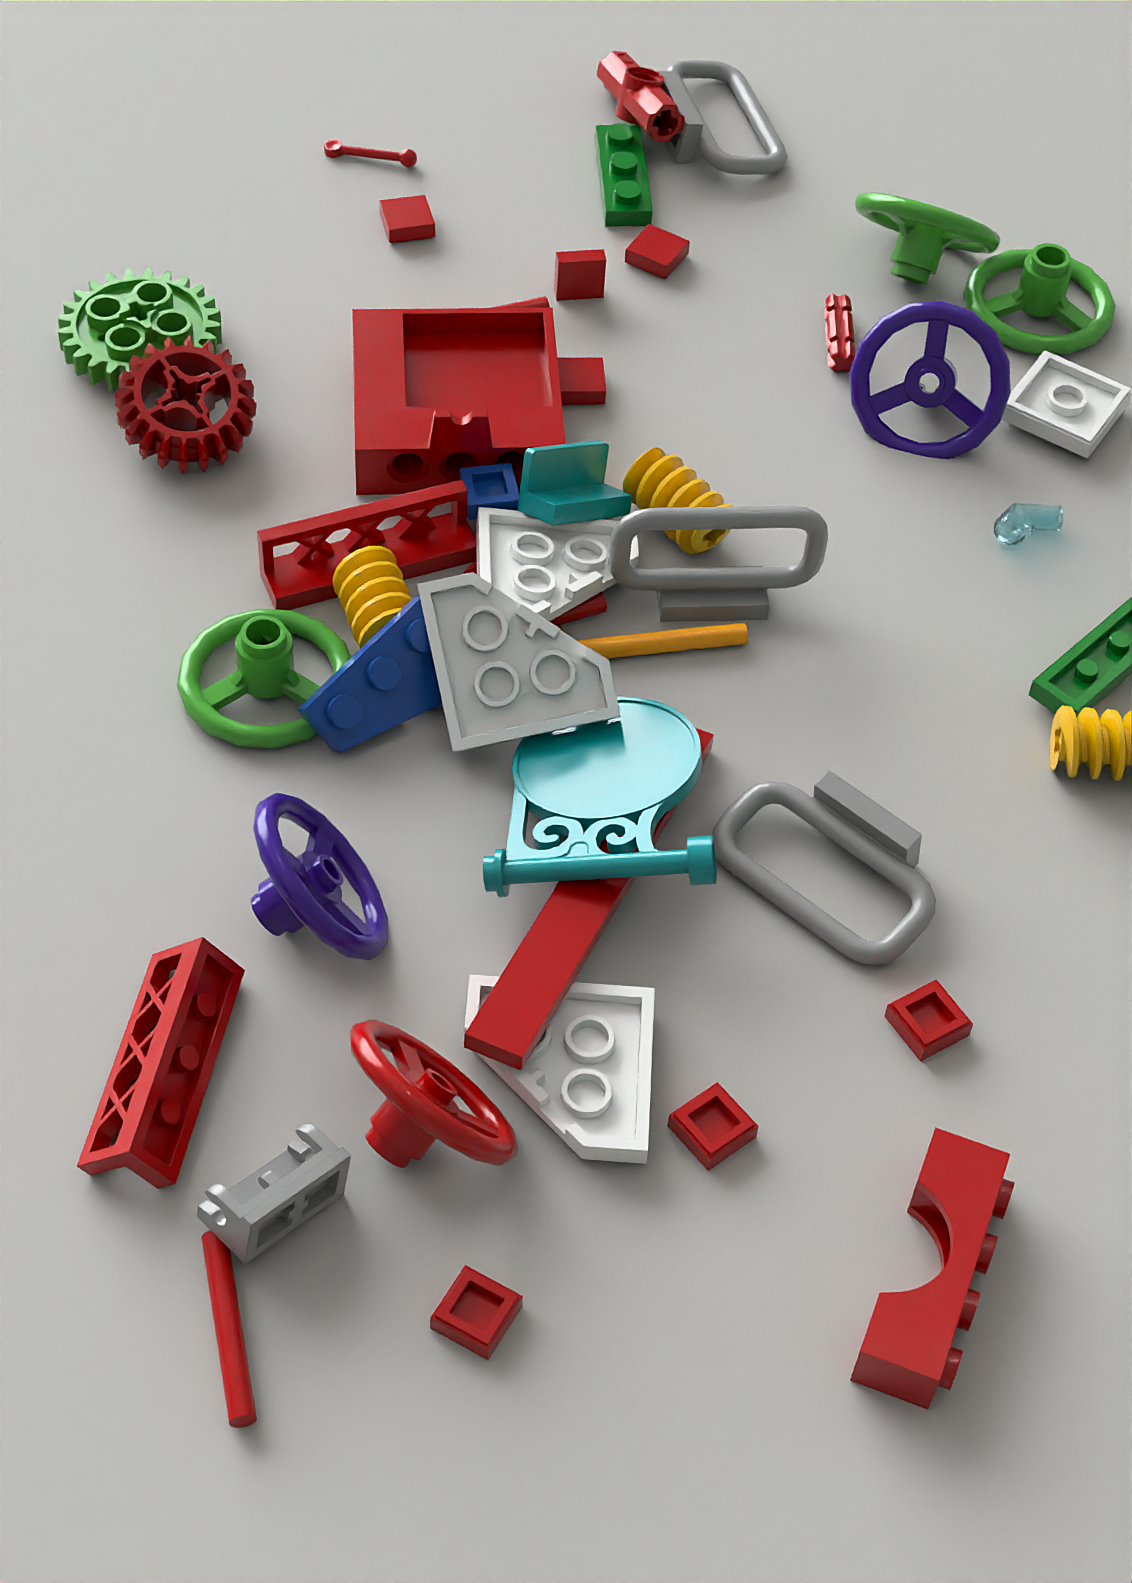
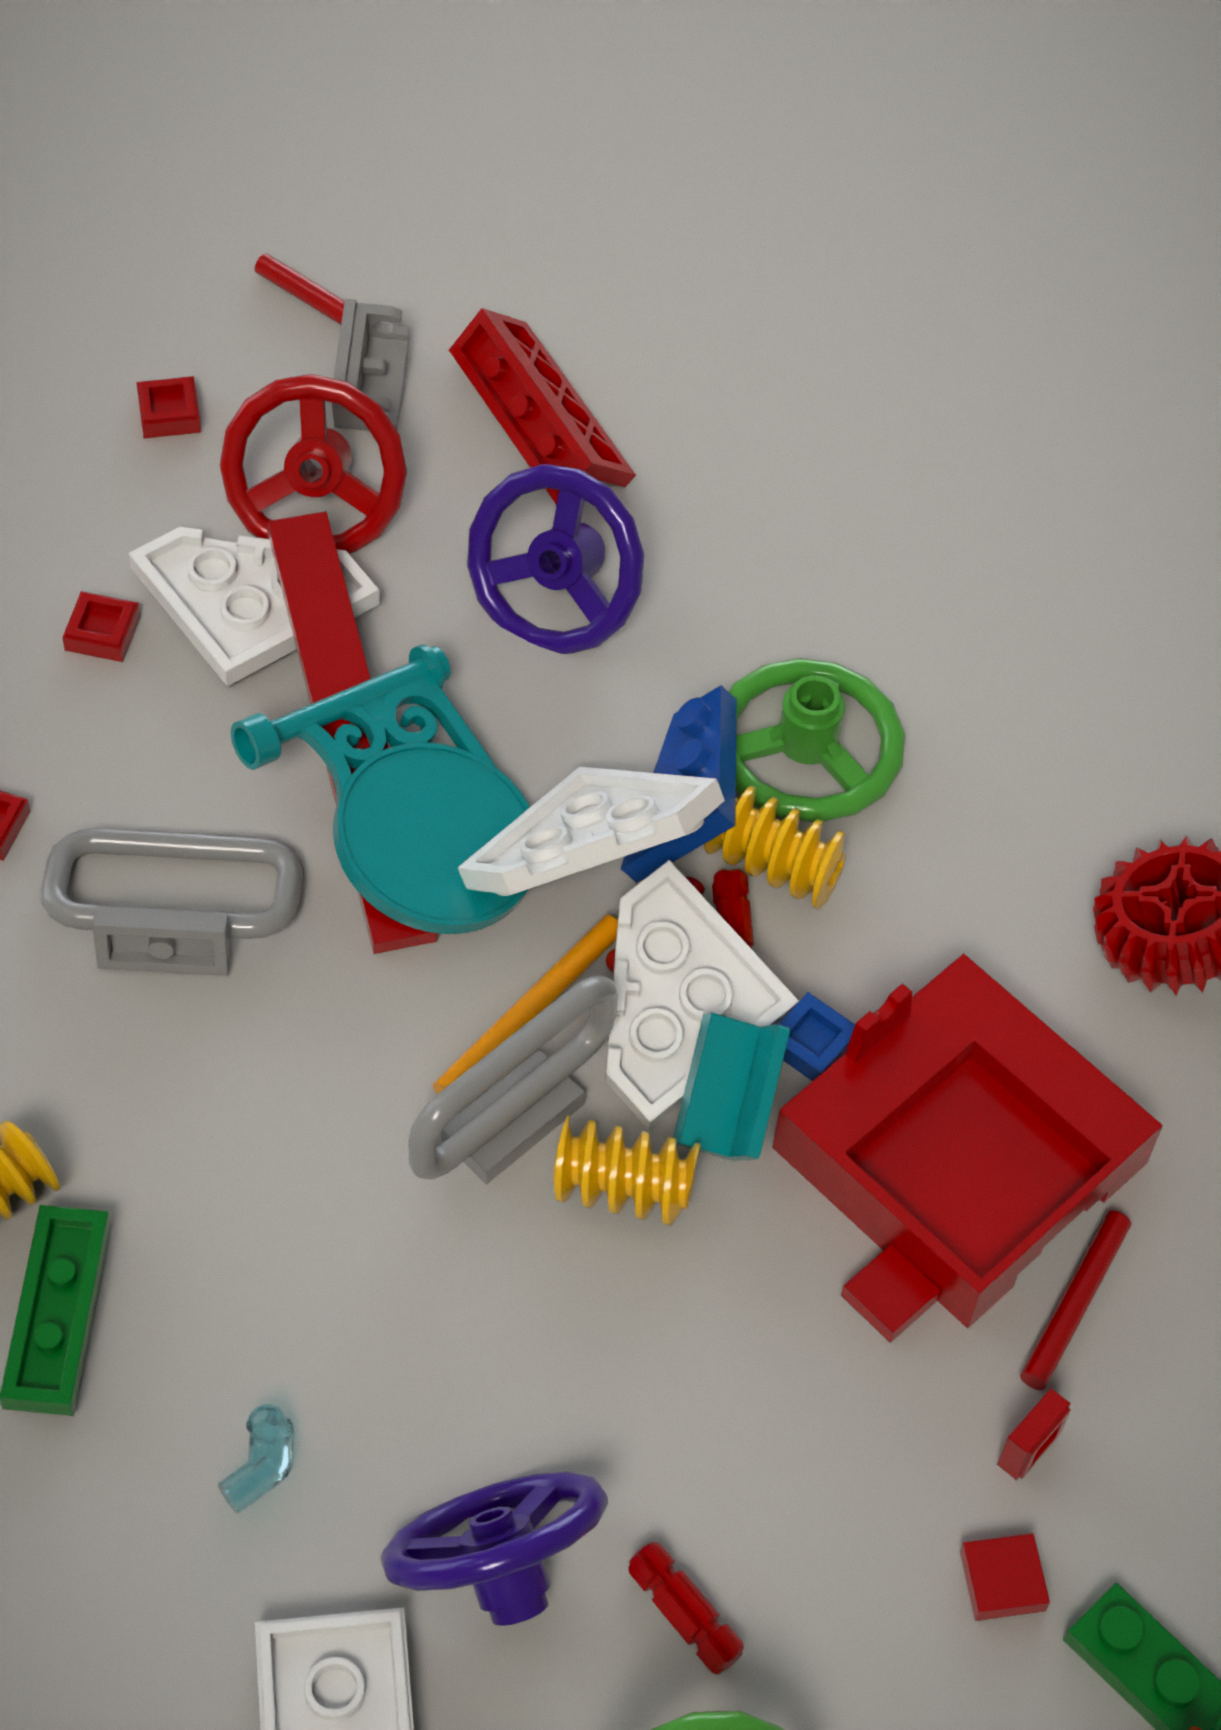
camera: 140 degrees right, 5 degrees up
(417, 541) = (861, 903): red fence -> none

